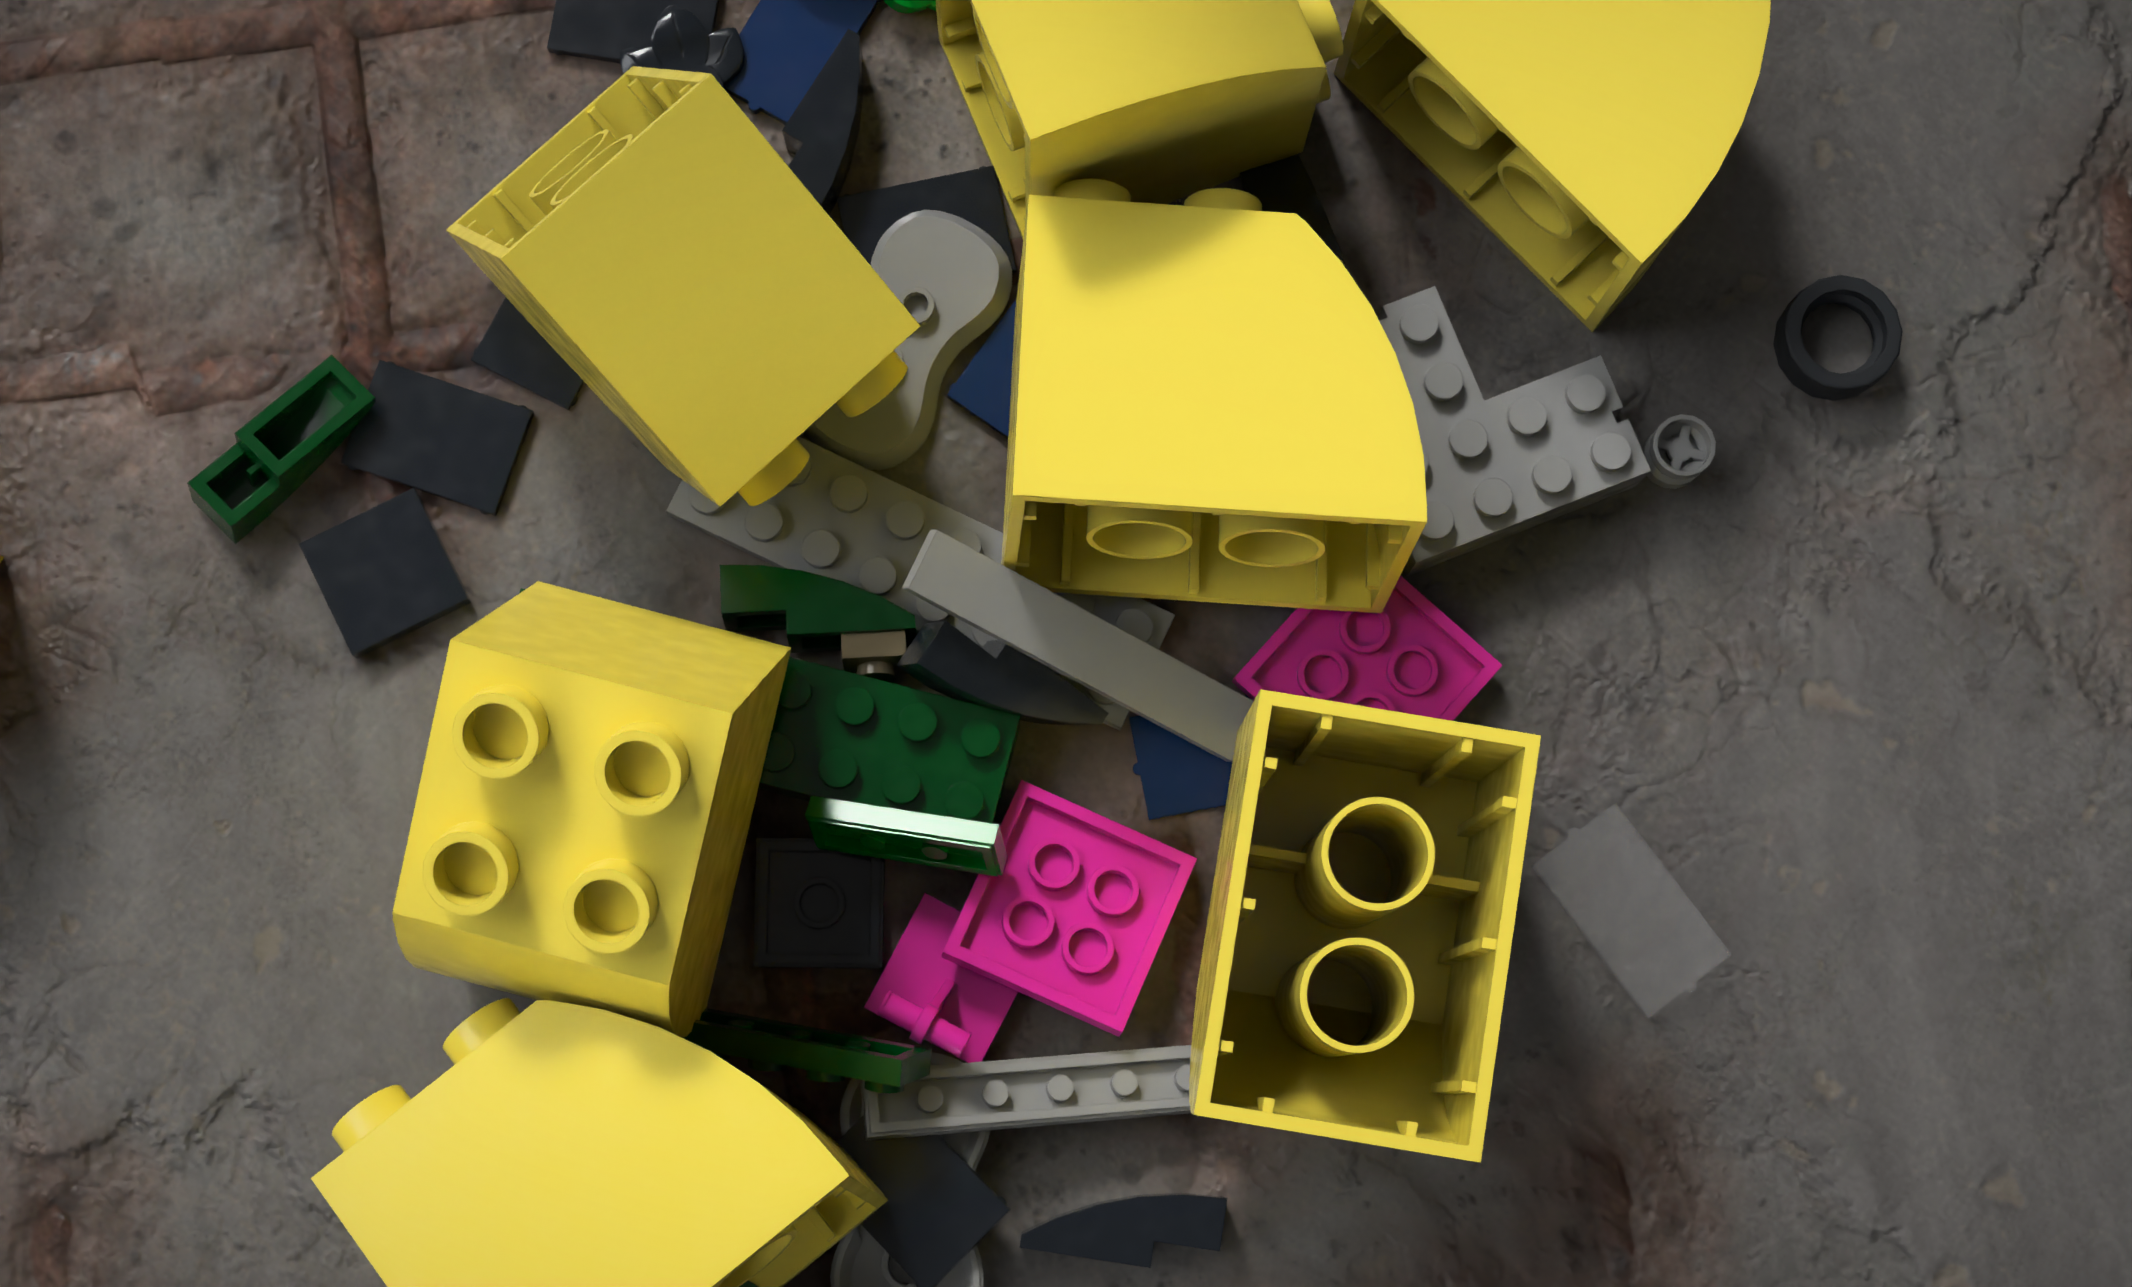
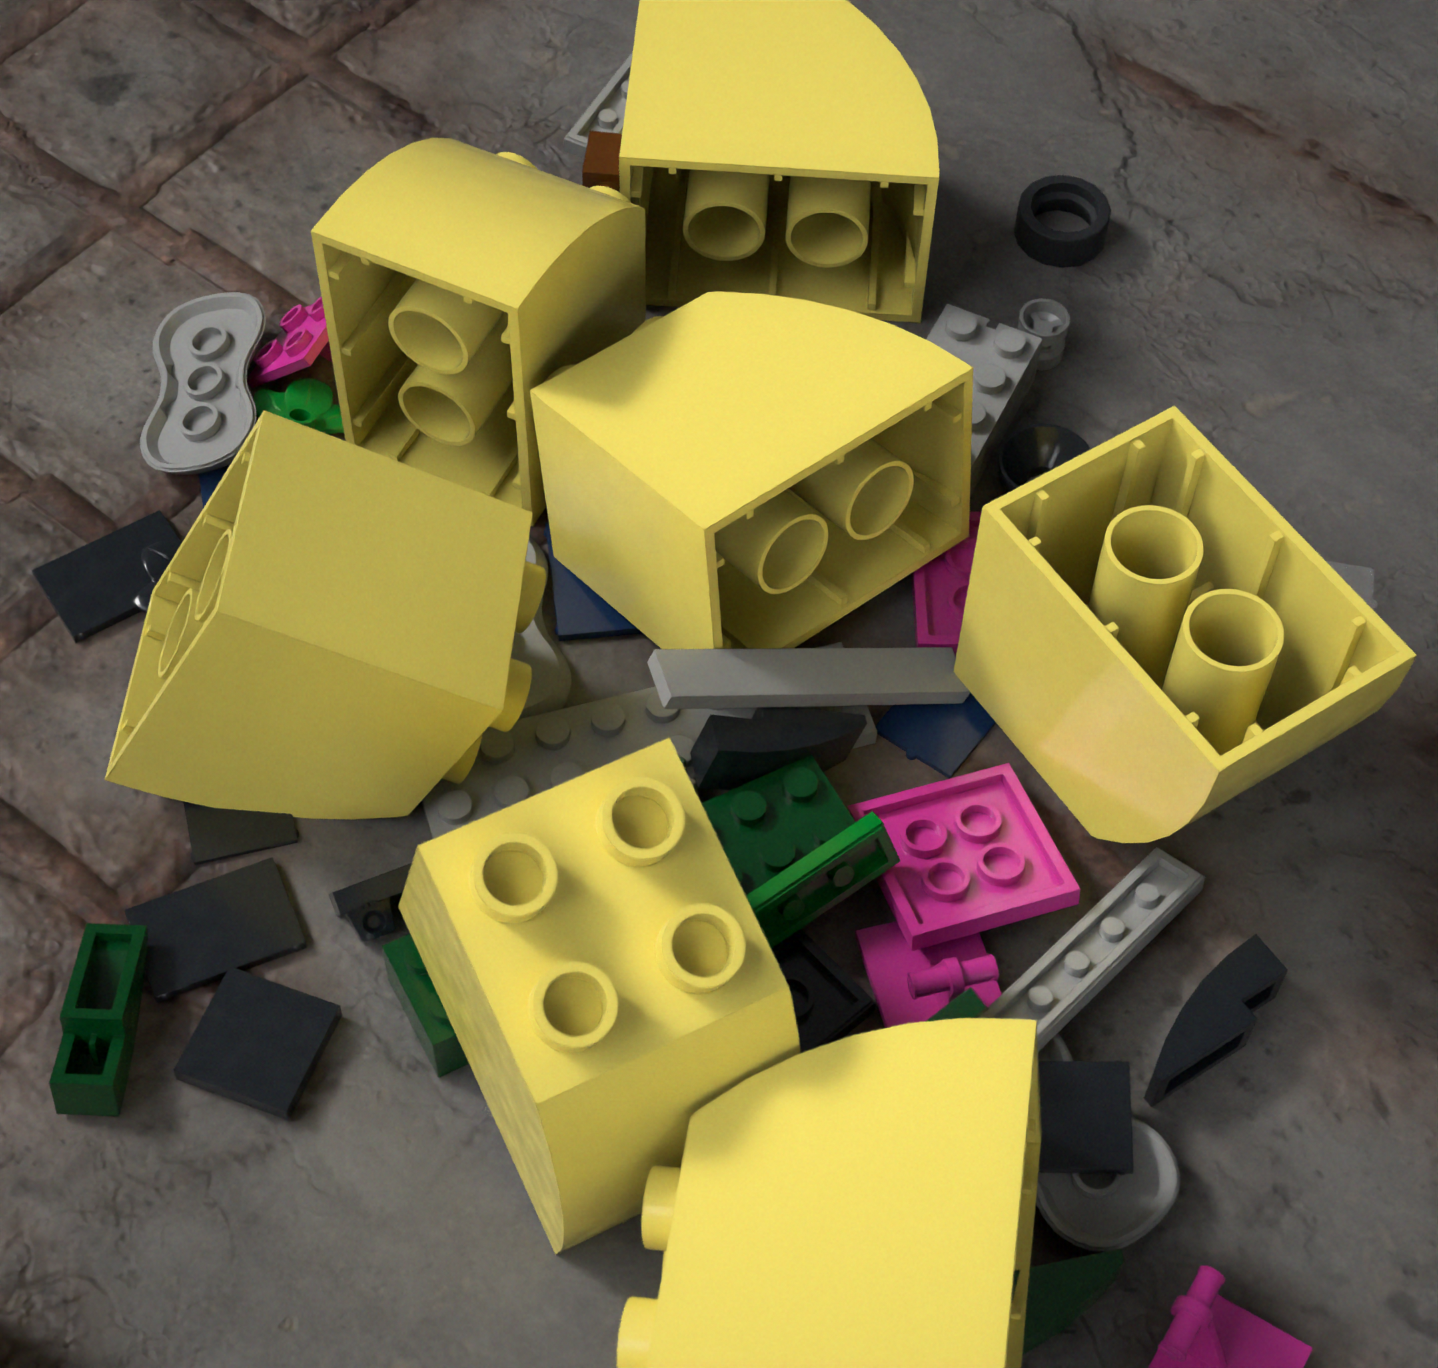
camera: 40 degrees left, 25 degrees down
(570, 520) = (369, 904): none -> black hinge
(1550, 577) = (1036, 451): none -> black piece

